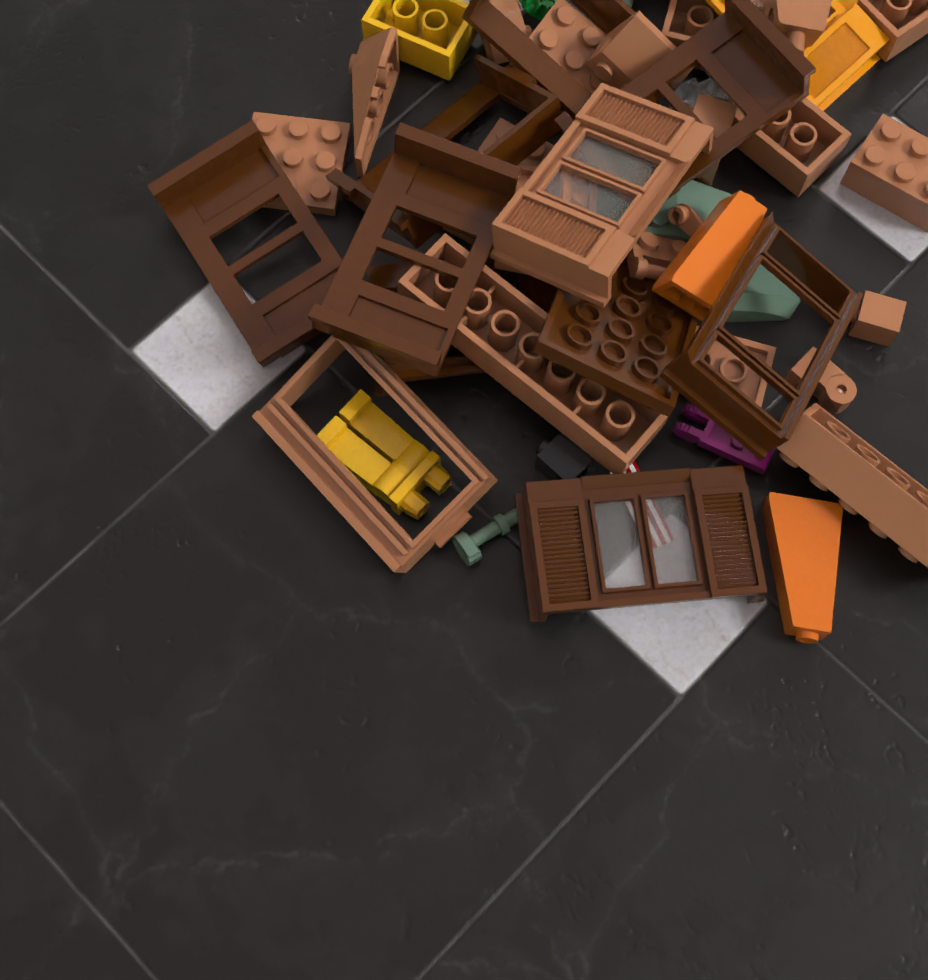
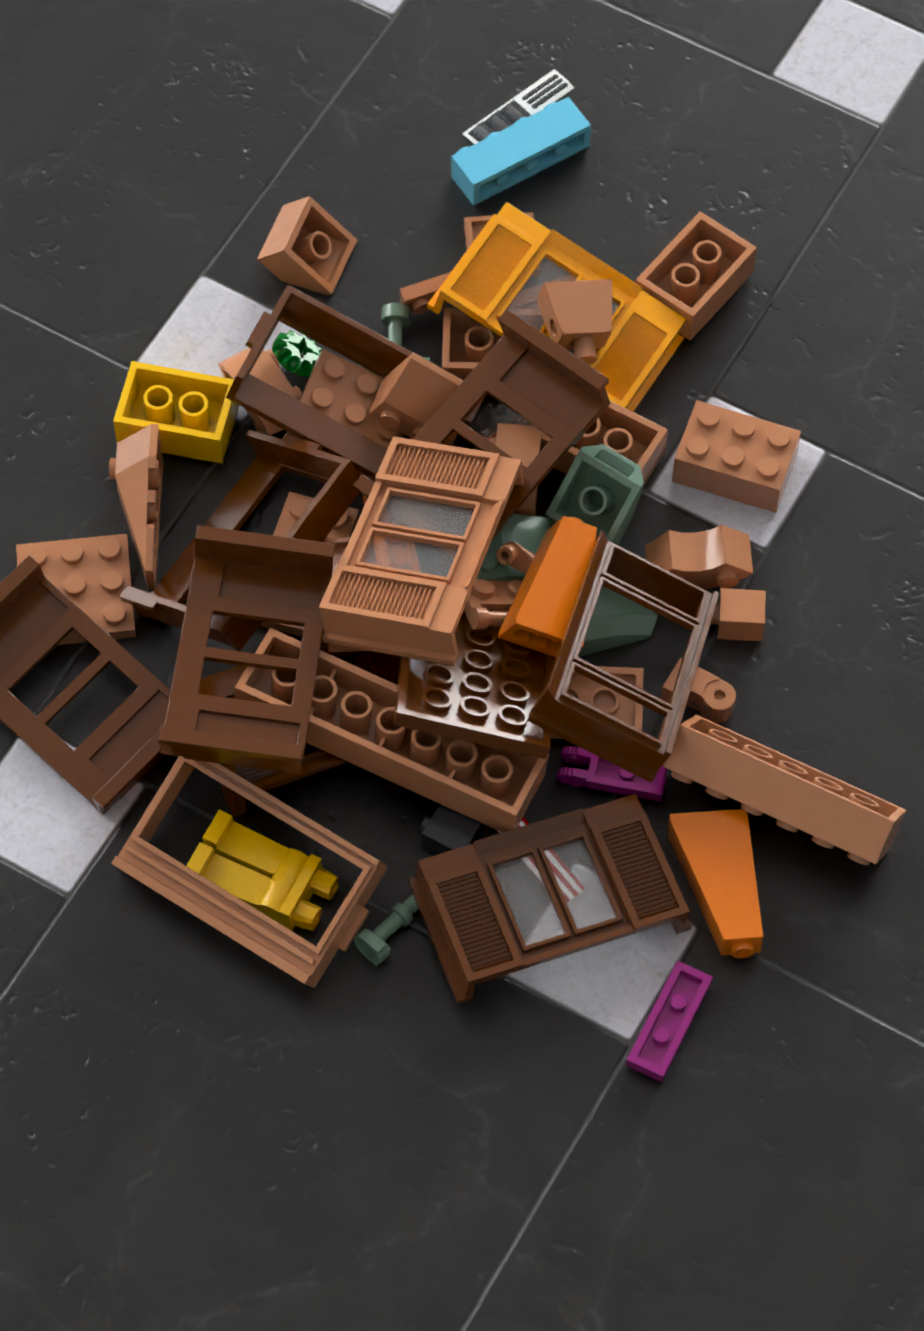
camera: 15 degrees left, 10 degrees down
(722, 689) = (669, 1021): none -> magenta plate
(777, 175) = (600, 491): none -> sand green slope
(857, 259) = (704, 558): none -> nougat brick

